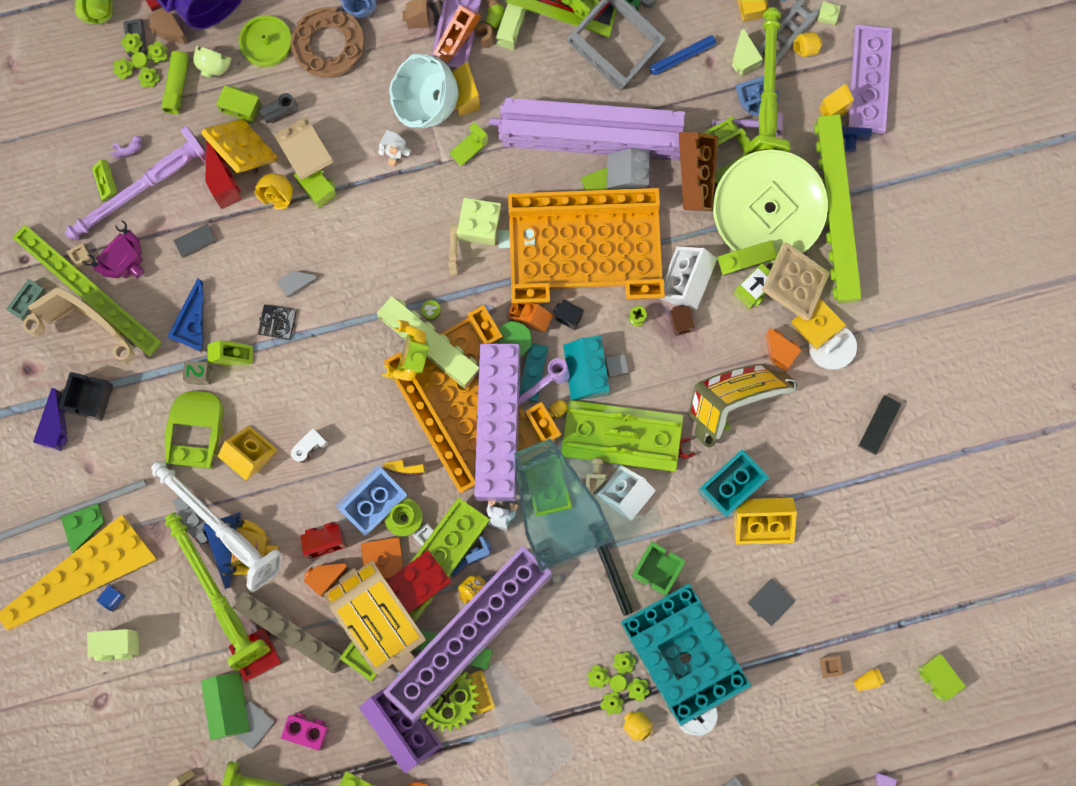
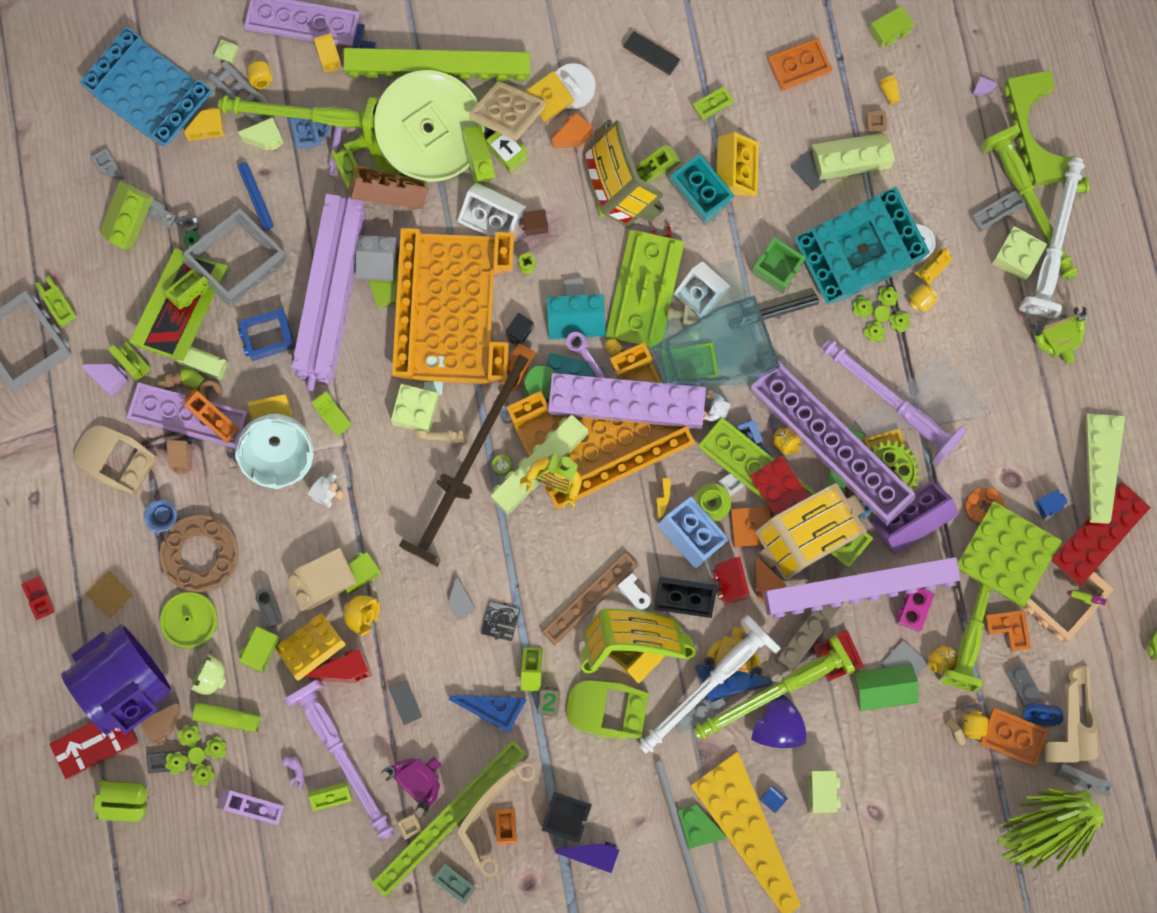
camera: 90 degrees left, 0 degrees up
(76, 341) = (506, 826): none -> orange slope
(93, 111) = (250, 806): none -> lavender slope
(179, 598) = (780, 726): none -> dark purple brick
(253, 762) = (942, 659): none -> yellow head
(261, 450) = (633, 632): none -> panel
(303, 405) = (589, 598): none -> medium nougat tile
(307, 497) = (685, 597): none -> black slope
(317, 672) = (861, 586): none -> lavender brick
(400, 262) = (455, 487): none -> dark brown piece
(507, 716) = (912, 415): none -> lavender piece
(552, 94) = (270, 350): none -> blue window
(675, 737) = (934, 265): none -> yellow hinge
(752, 433) = (657, 164): none -> lime slope
(789, 642) = (853, 156): none -> yellowish green slope
(830, 491) = (713, 103): none -> lime plate
(887, 581) = (799, 64): none -> orange tile

